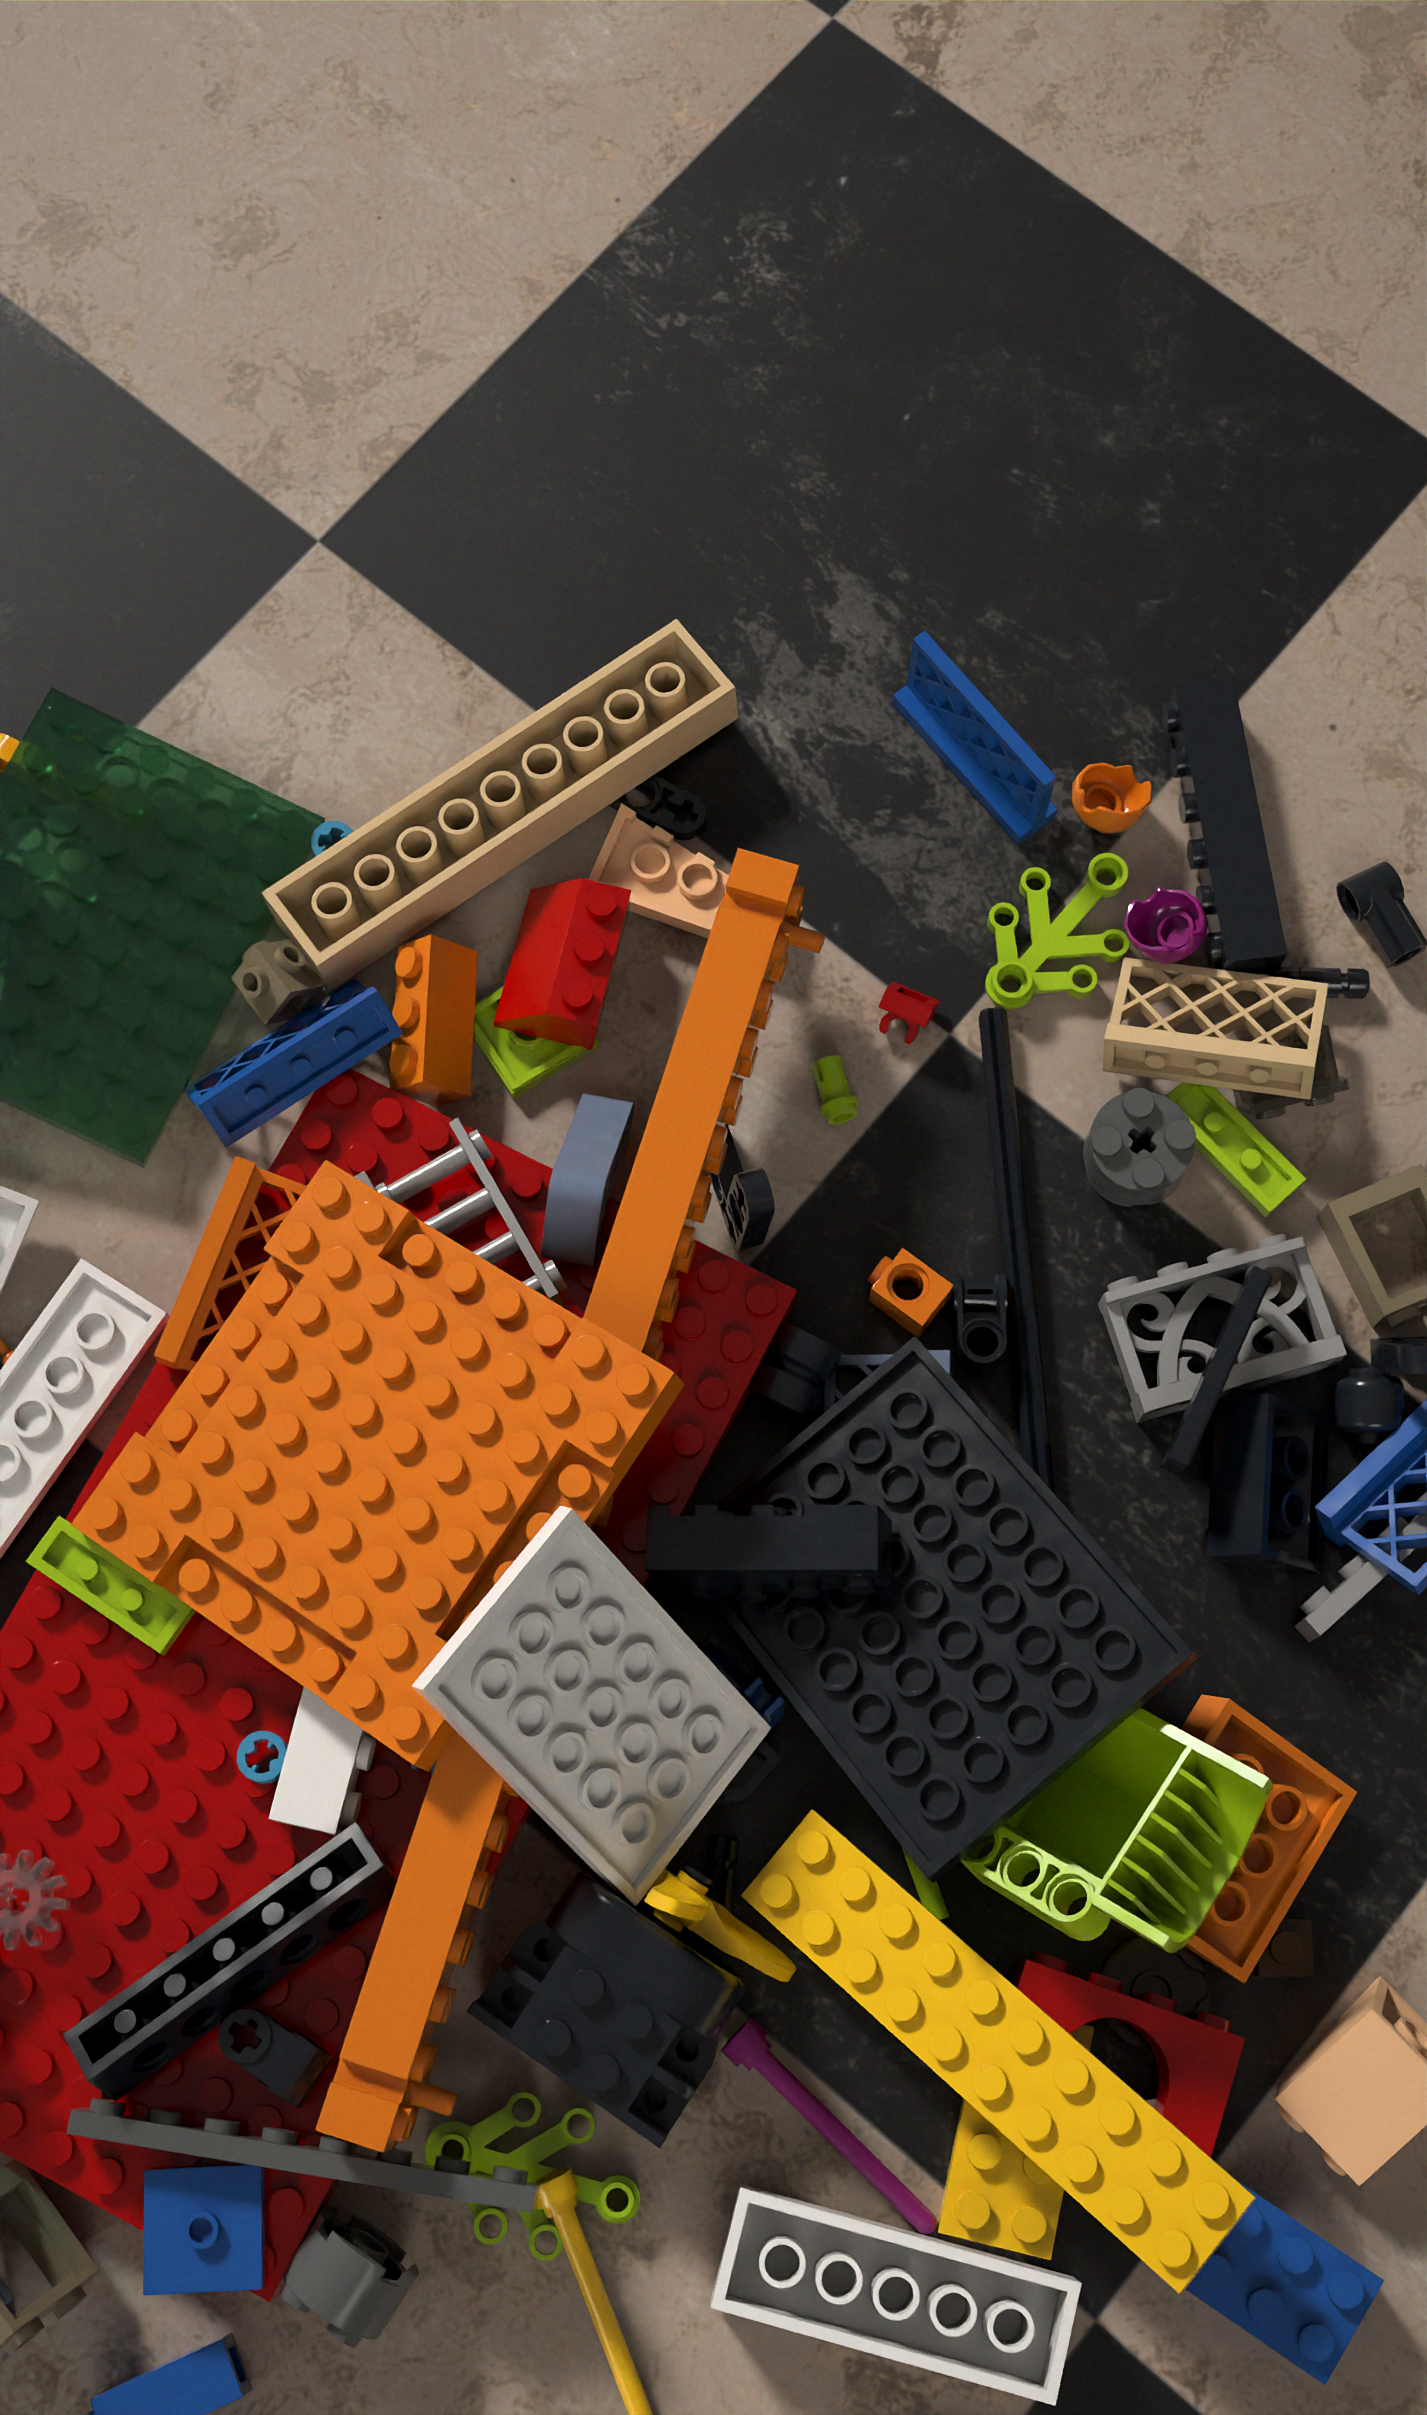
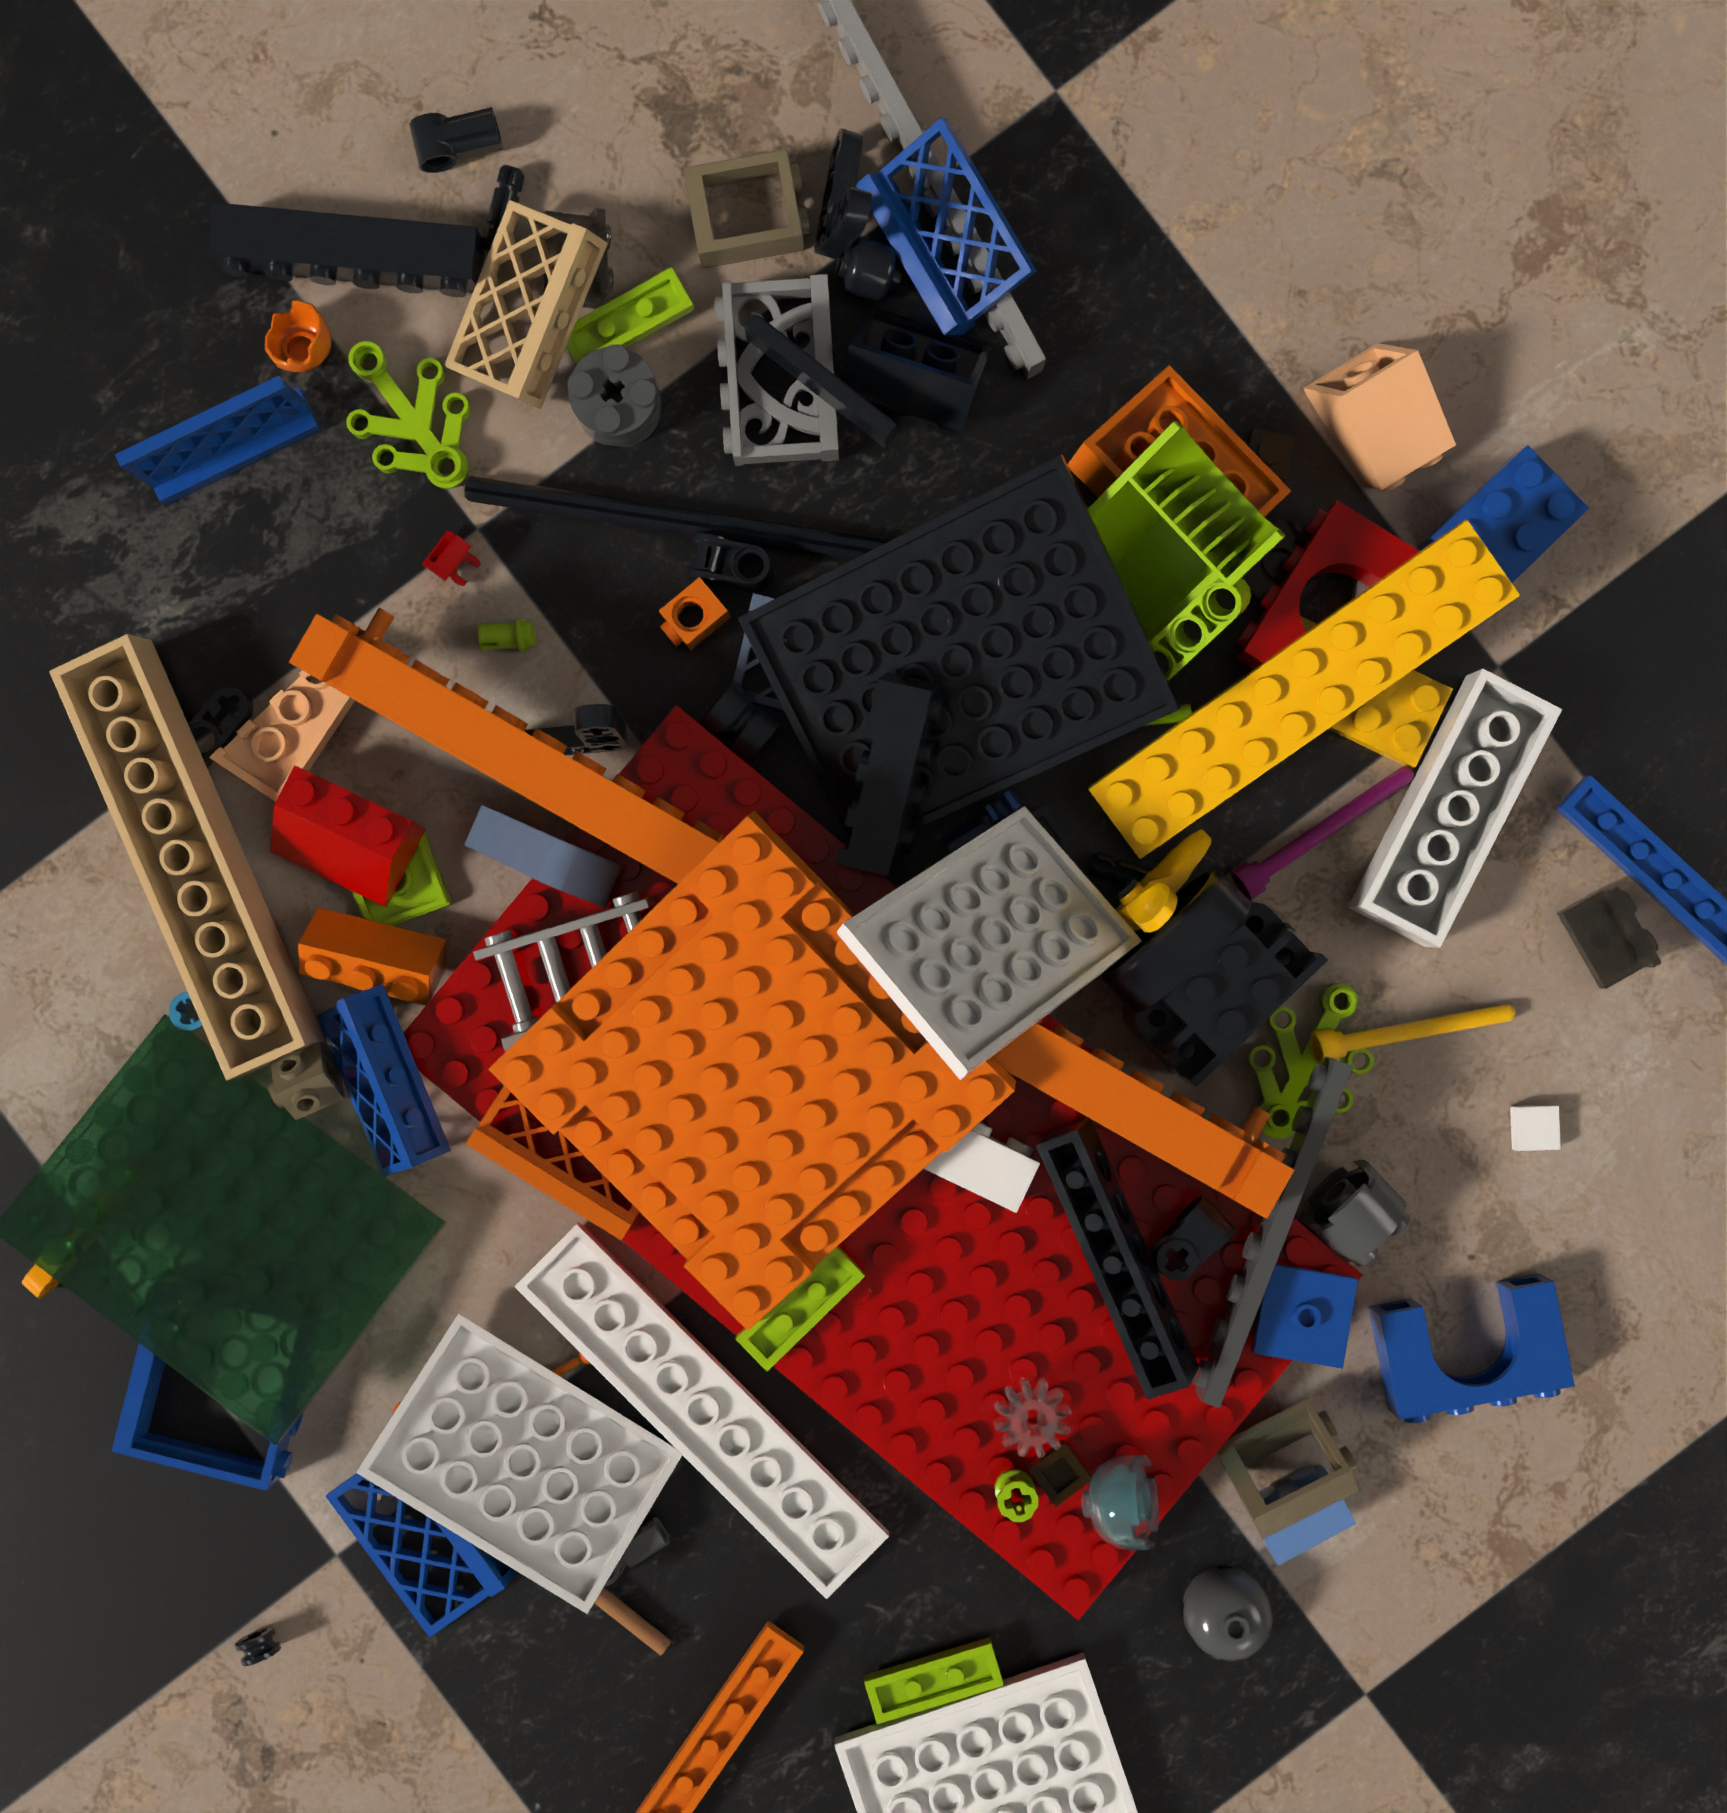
camera: 80 degrees left, 15 degrees up
(250, 1747) = (952, 1217): dark azure bush -> none
(1166, 925) = (425, 321): magenta hair -> none

